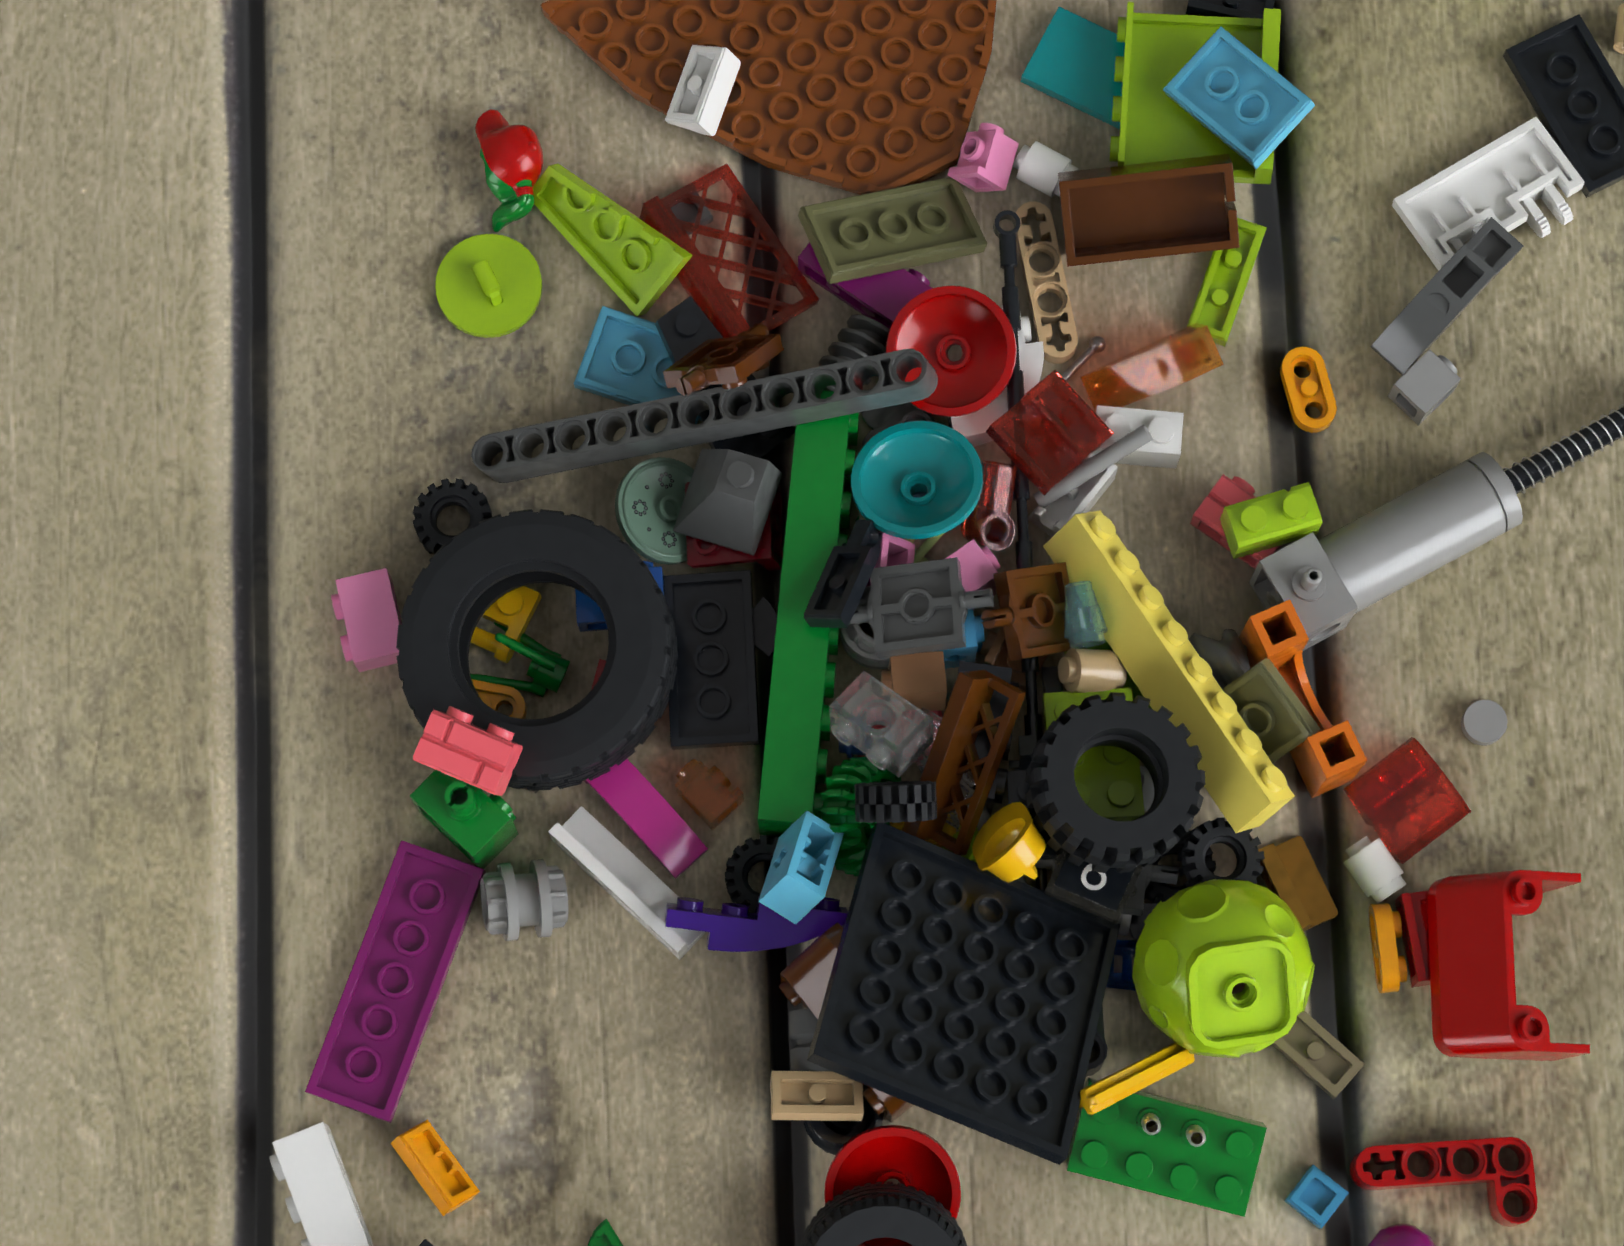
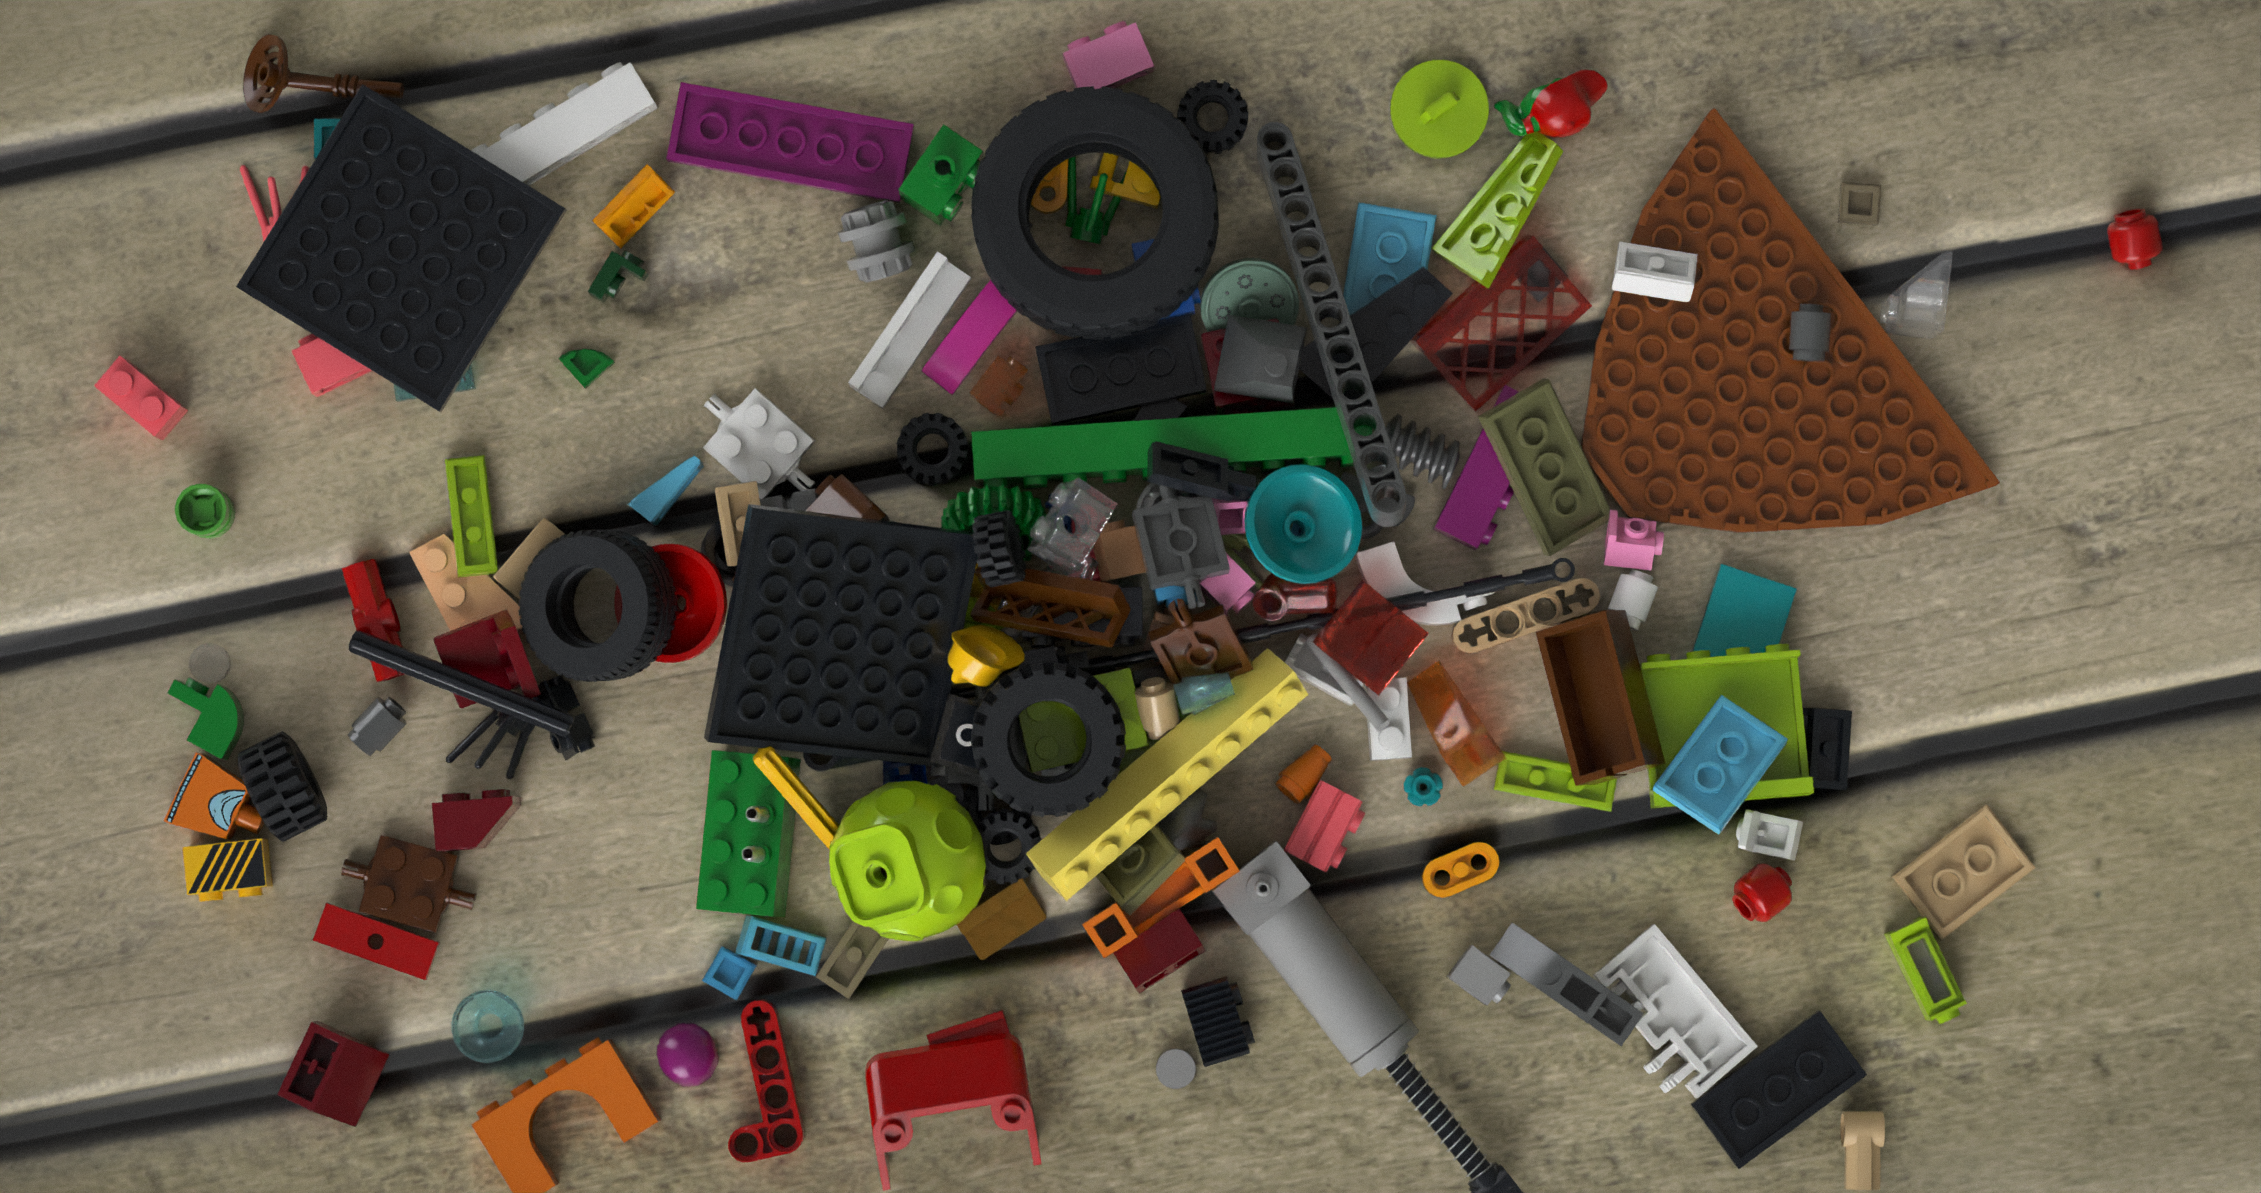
camera: 75 degrees right, 10 degrees up
(468, 751) = (985, 168): coral brick -> none
(513, 1207) = (609, 278): none -> dark green bracket
(724, 361) = (1383, 332): reddish brown plate -> none
(725, 1069) = (759, 443): none -> white plate
(739, 931) = (885, 464): dark purple slope -> none
(770, 1190) = (662, 495): none -> medium azure slope
(801, 867) = (931, 476): medium azure brick -> none
(962, 318) = (1433, 510): red dish -> none
(1096, 345) = (1473, 671): flat silver hinge -> none
(1183, 536) = (1303, 774): none -> orange cone
(1210, 425) = (1412, 787): none -> teal plate
(1270, 520) = (1319, 848): lime brick -> none
(1277, 1167) = (747, 936): none -> medium azure slope
(1316, 68) = (1769, 834): none -> white bracket
(1349, 699) = (1159, 951): none -> dark red hinge
(1374, 87) = (1762, 892): none -> red head
(1374, 869) = (1024, 986): white brick -> none
(1384, 929) = (939, 1010): light orange plate -> none
(1407, 800) = (1092, 1007): clear red slope -> none
(1439, 668) = (1216, 1020): none -> black brick

